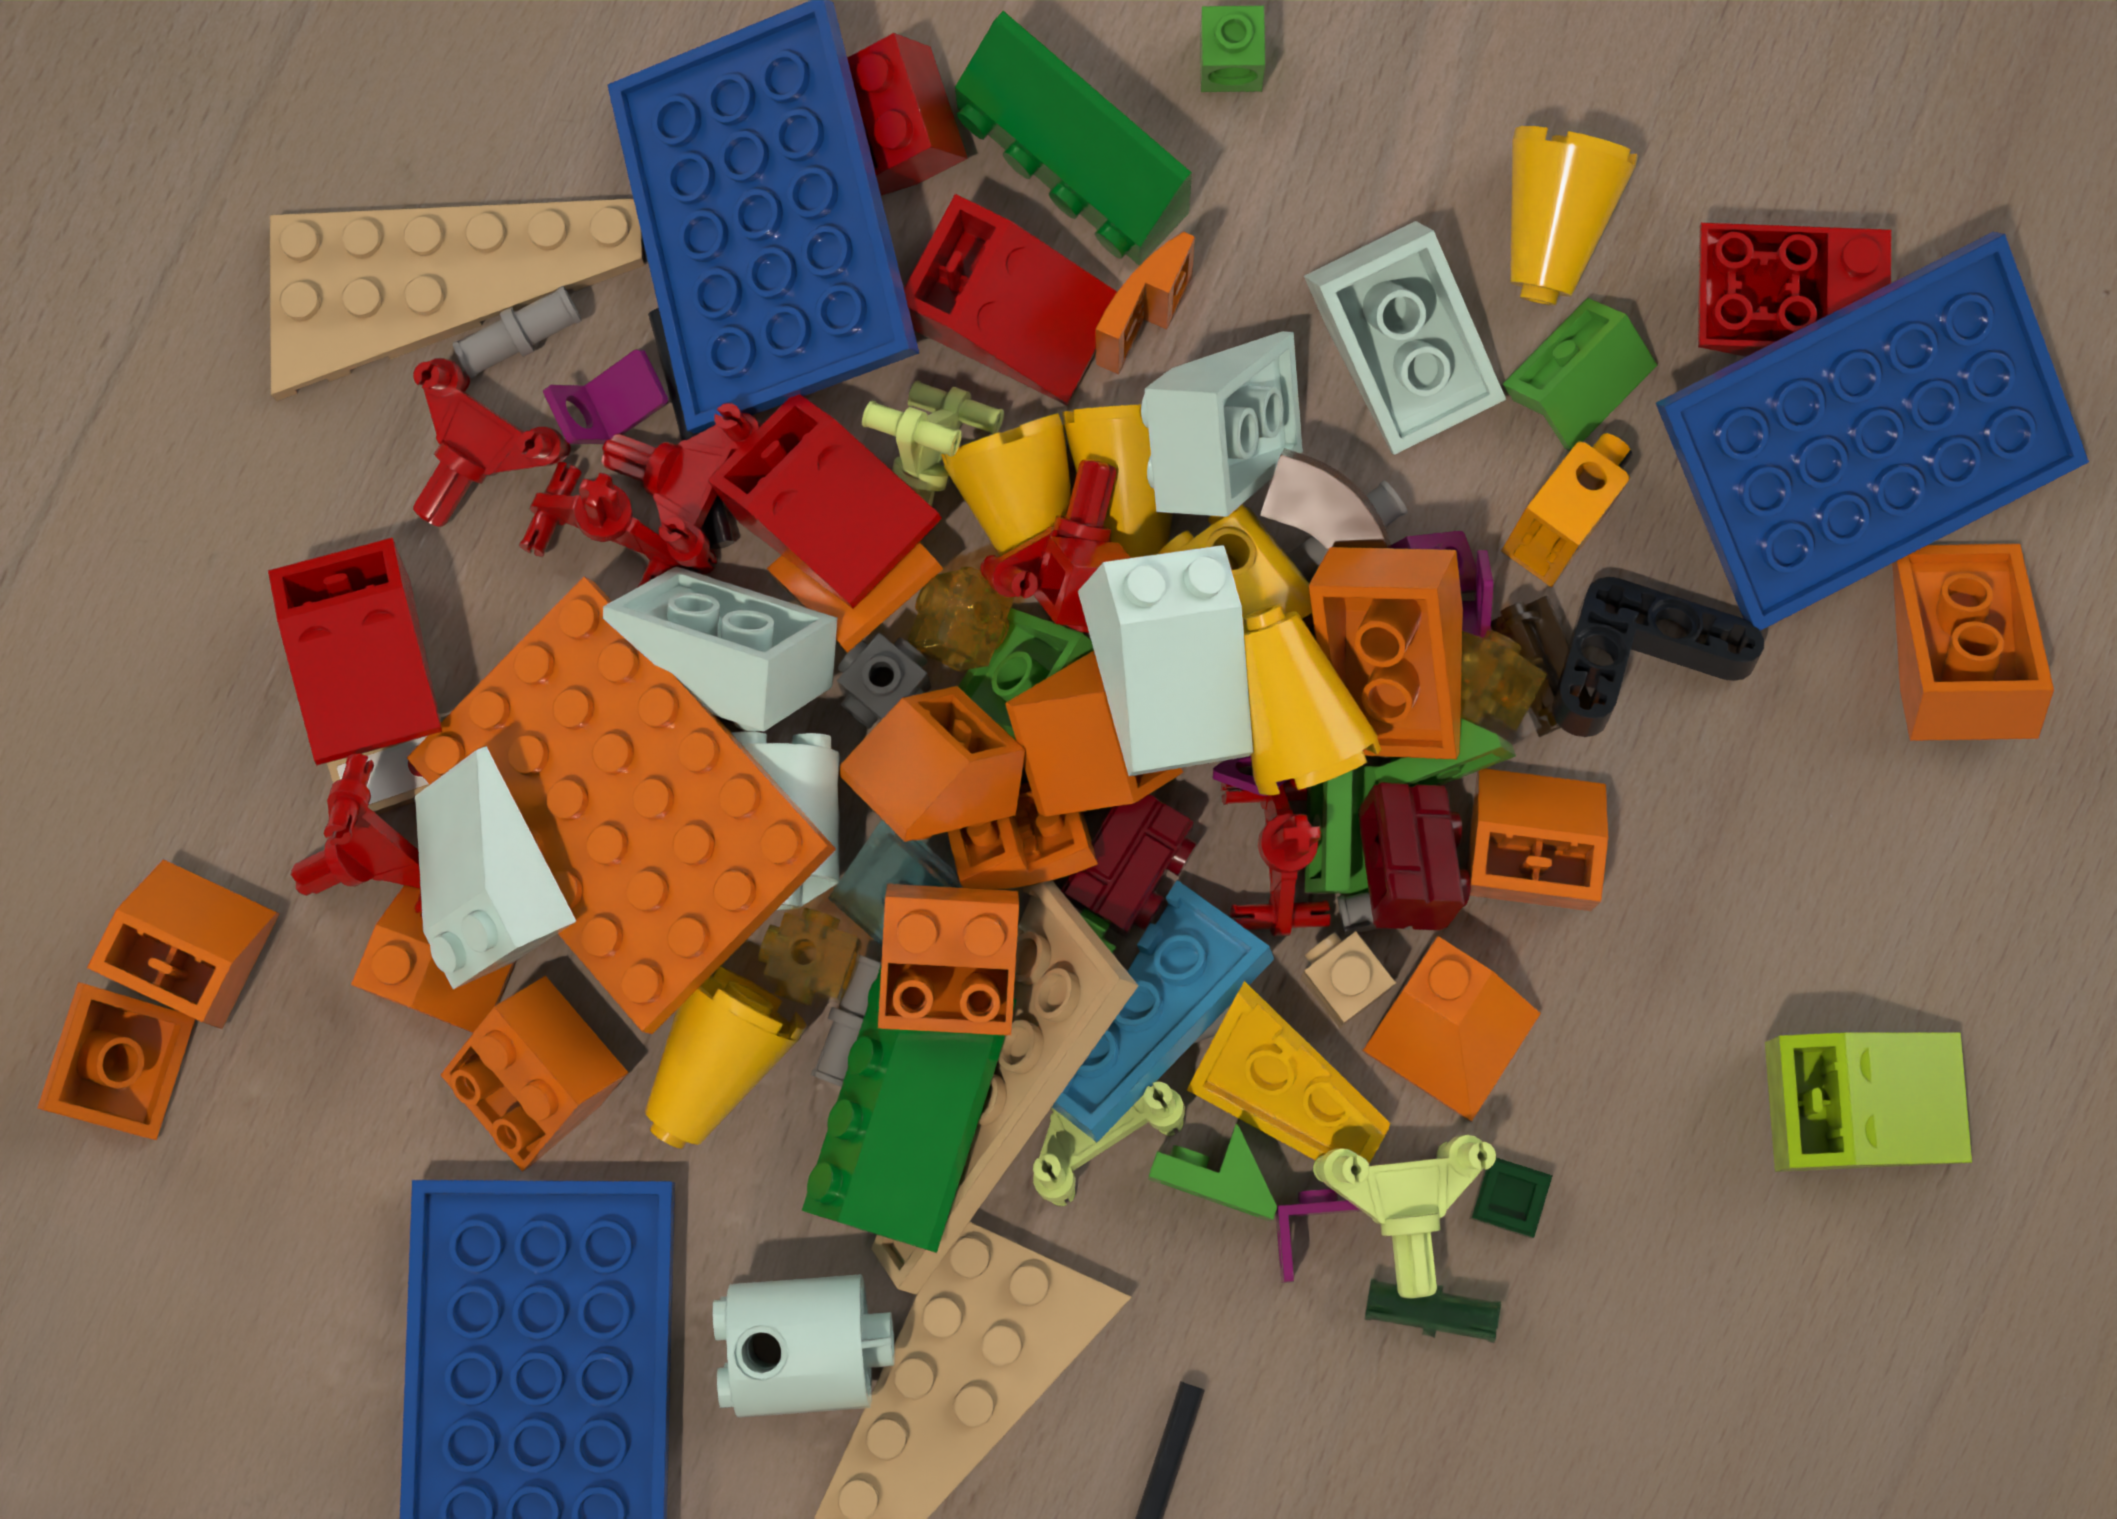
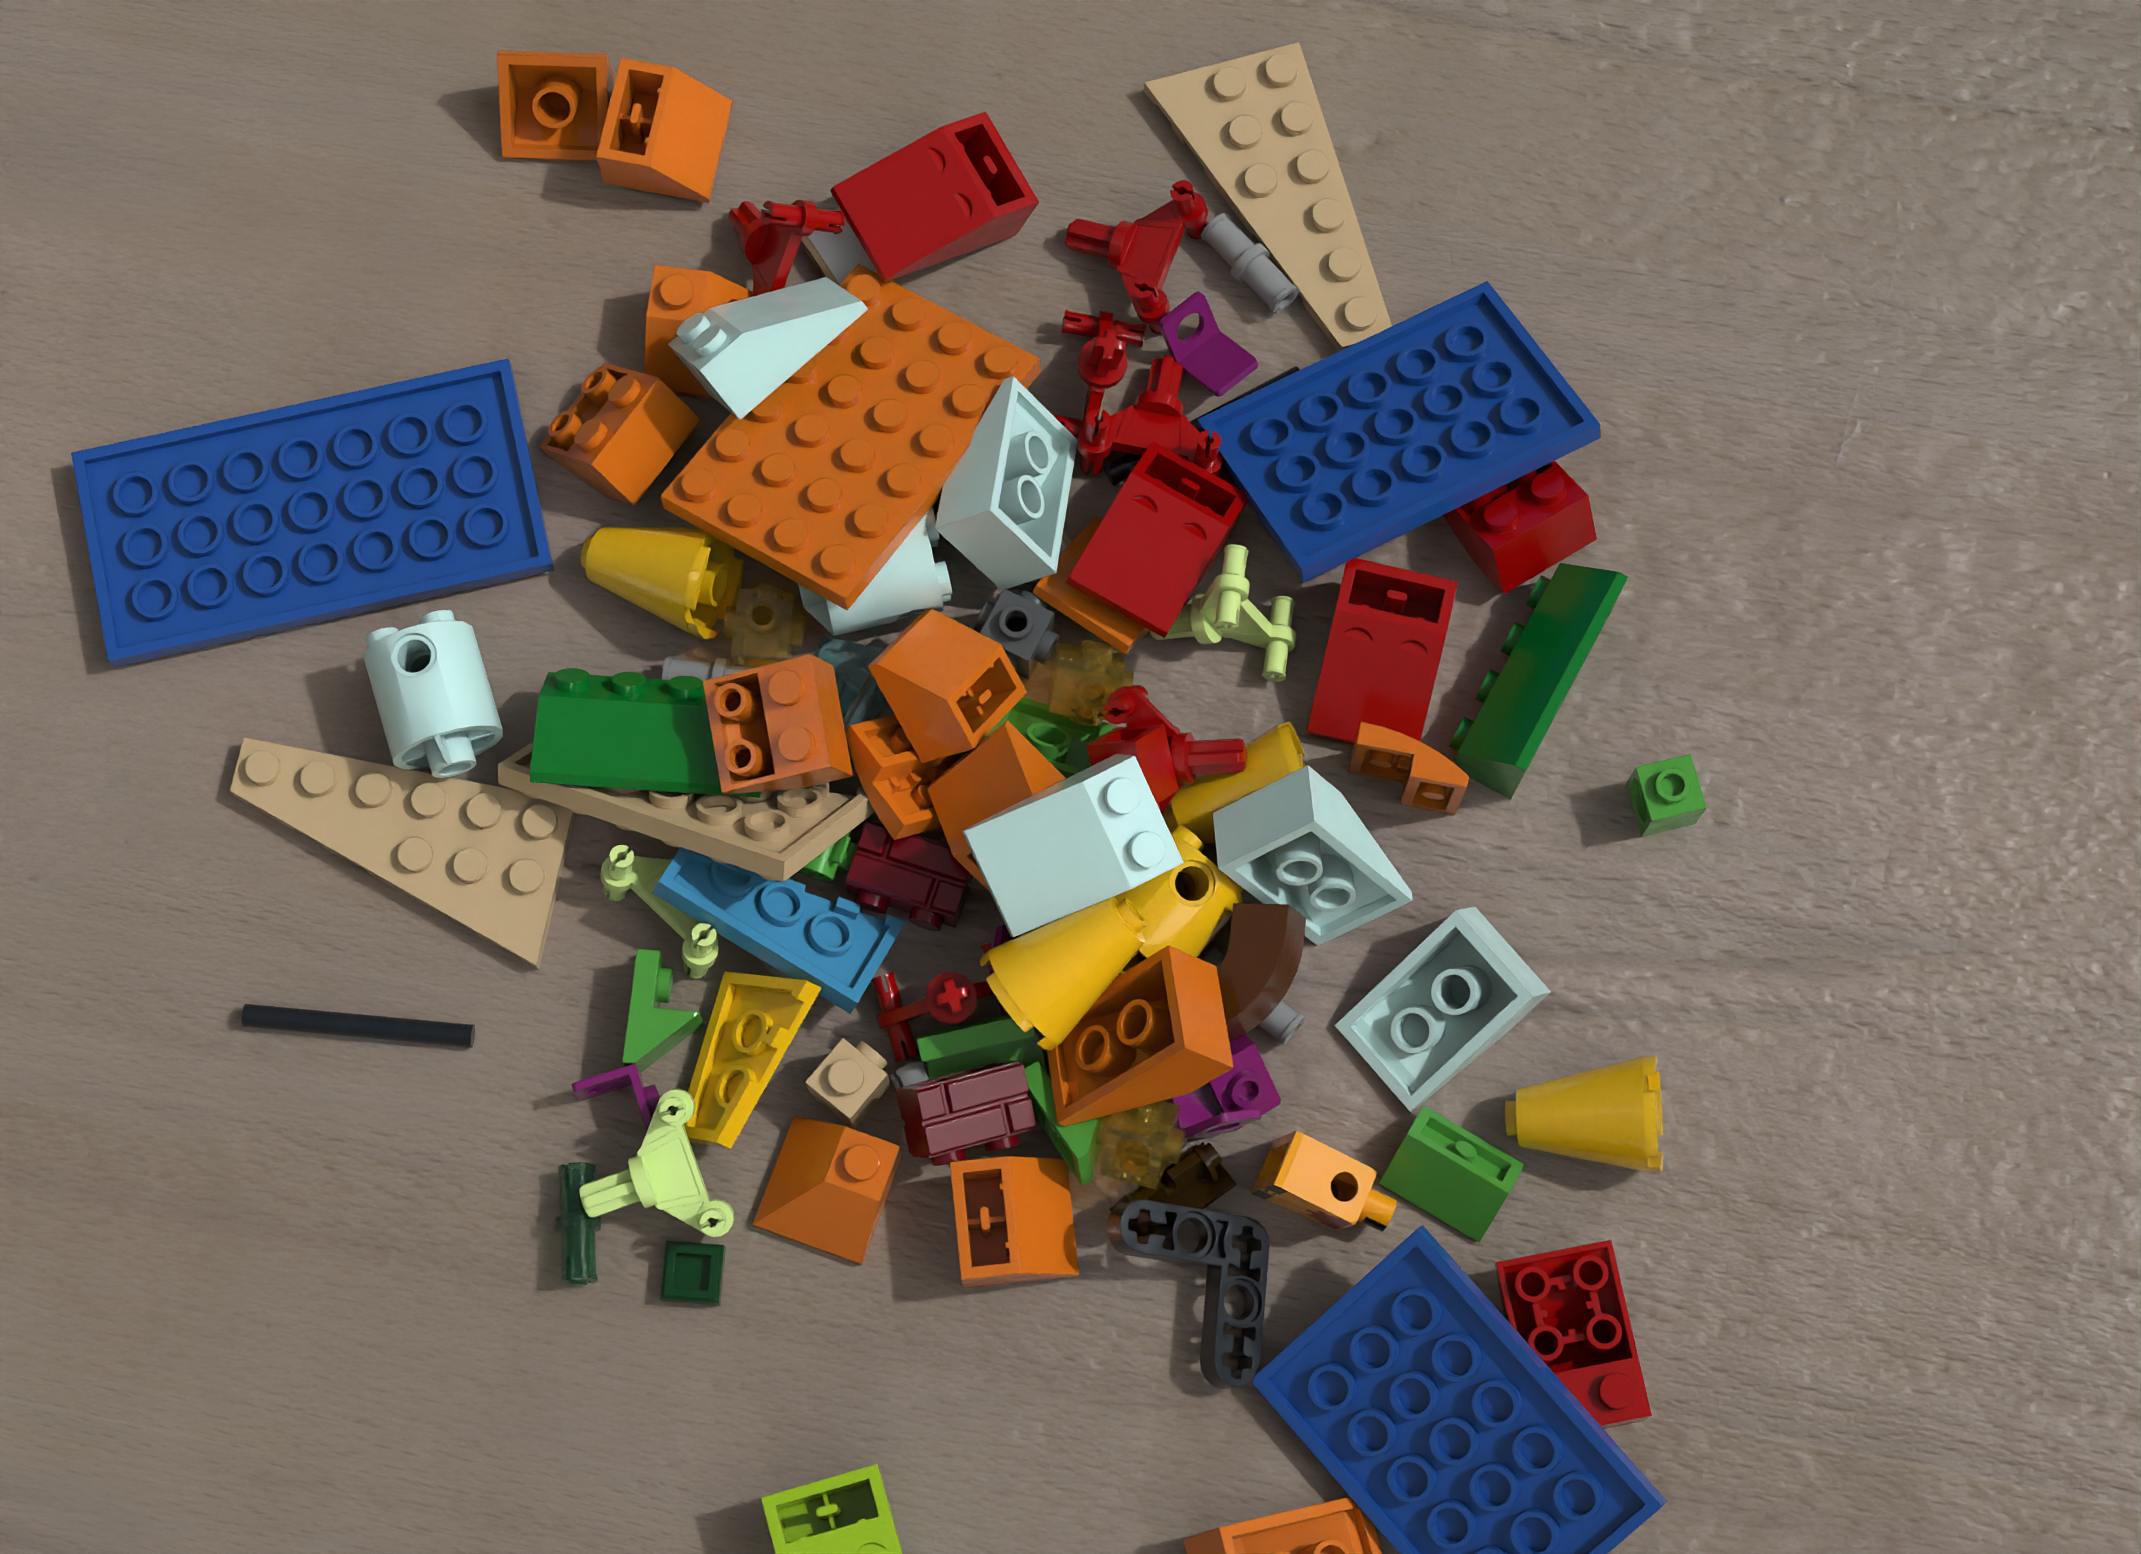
camera: 70 degrees right, 5 degrees down
(1014, 480) = (1220, 695): yellow cone -> none

